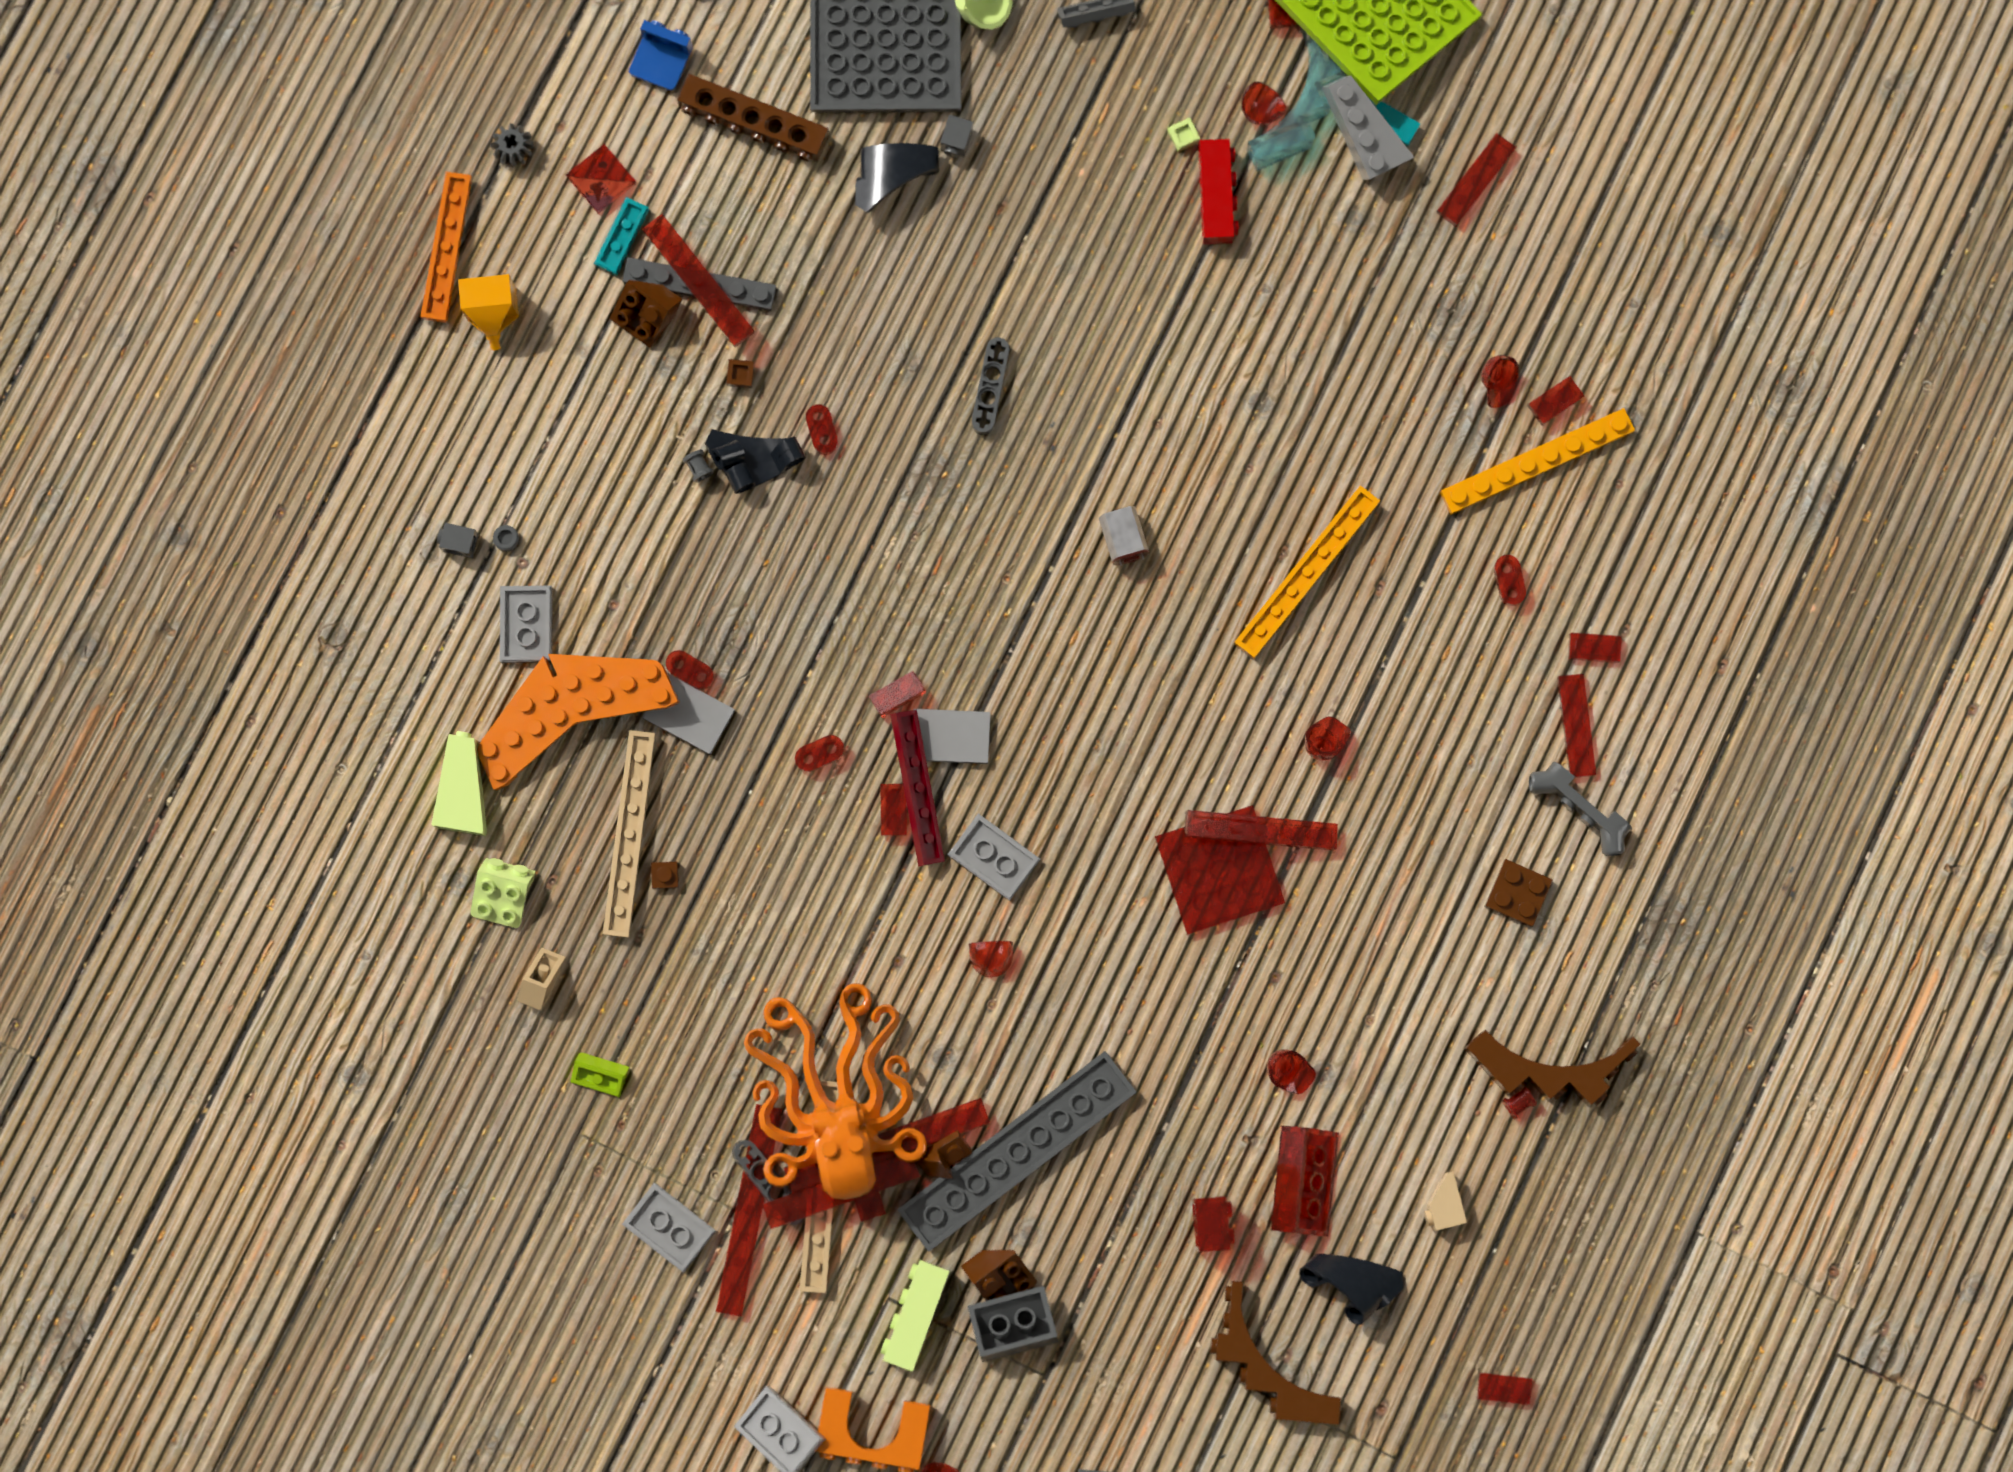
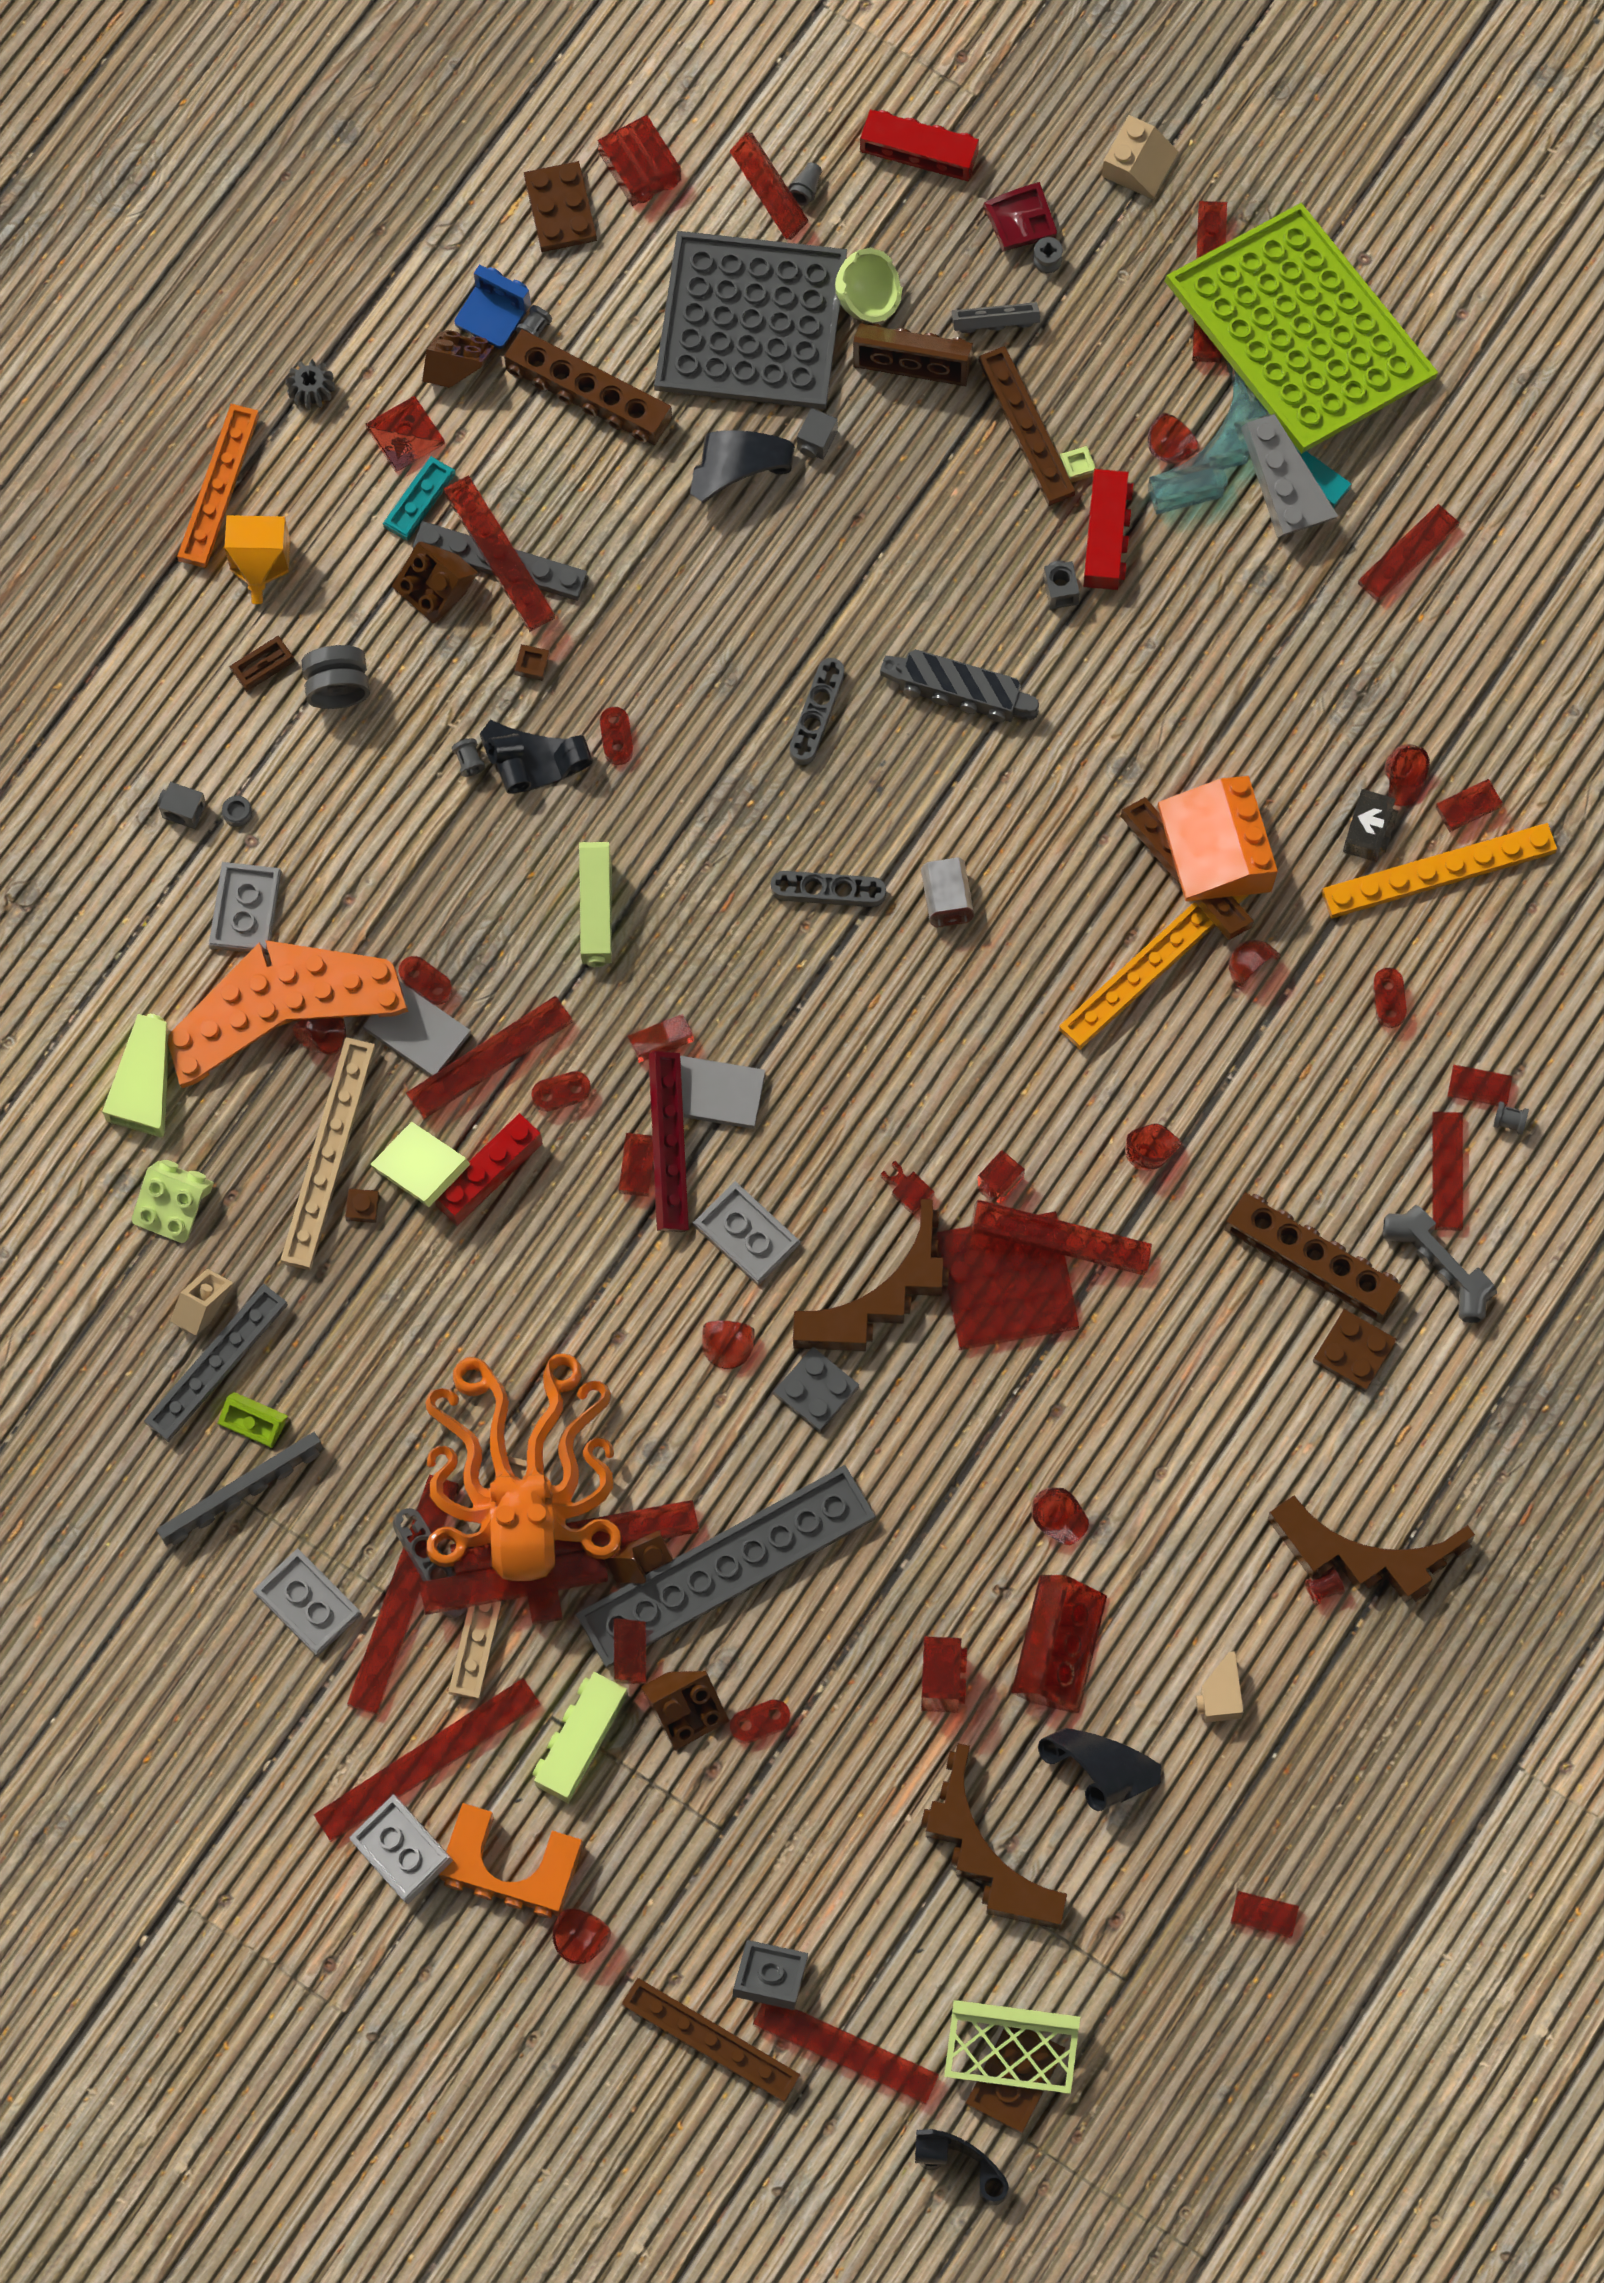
camera: 10 degrees right, 10 degrees down
(515, 409) = (267, 672): none -> reddish brown tile
(561, 1030) = (215, 1362): none -> dark grey plate
(573, 410) = (335, 677): none -> dark grey wheel
(607, 1132) = (250, 1483): none -> dark grey plate
(608, 732) = (321, 1035): none -> clear red helmet
(634, 106) = (454, 358): none -> reddish brown slope
(698, 64) = (535, 321): none -> dark grey bush
(709, 836) = (420, 1164): none -> yellowish green tile
(754, 731) = (489, 1057): none -> clear red plate
(767, 831) = (490, 1168): none -> red brick
(789, 1349) = (427, 1759): none -> clear red tile
(826, 585) = (595, 903): none -> yellowish green slope
(947, 1238) = (629, 1651): none -> clear red slope
(1012, 1324) = (692, 1760): dark grey slope -> none
(1021, 540) = (828, 883): none -> dark grey beam
(1029, 52) = (912, 354): none -> reddish brown slope
(1064, 1281) = (760, 1721): none -> clear red plate
(1071, 986) = (816, 1389): none -> dark grey plate
(1092, 928) = (847, 1325): none -> reddish brown arch
(1109, 348) = (960, 685): none -> dark grey hinge
(1127, 802) = (908, 1189): none -> clear red plate
(1135, 105) = (1026, 425): none -> reddish brown plate
(1184, 256) = (1061, 595): none -> dark grey brick
(1201, 782) = (1000, 1177): none -> clear red brick
(1325, 489) = (1148, 826): none -> reddish brown plate
(1349, 462) = (1219, 840): none -> slope
(1387, 562) = (1248, 958): none -> clear red helmet
(1411, 796) = (1320, 1272): none -> reddish brown brick
(1474, 430) = (1369, 825): none -> clear smoke brick
(1625, 673) = (1511, 1118): none -> dark grey bush

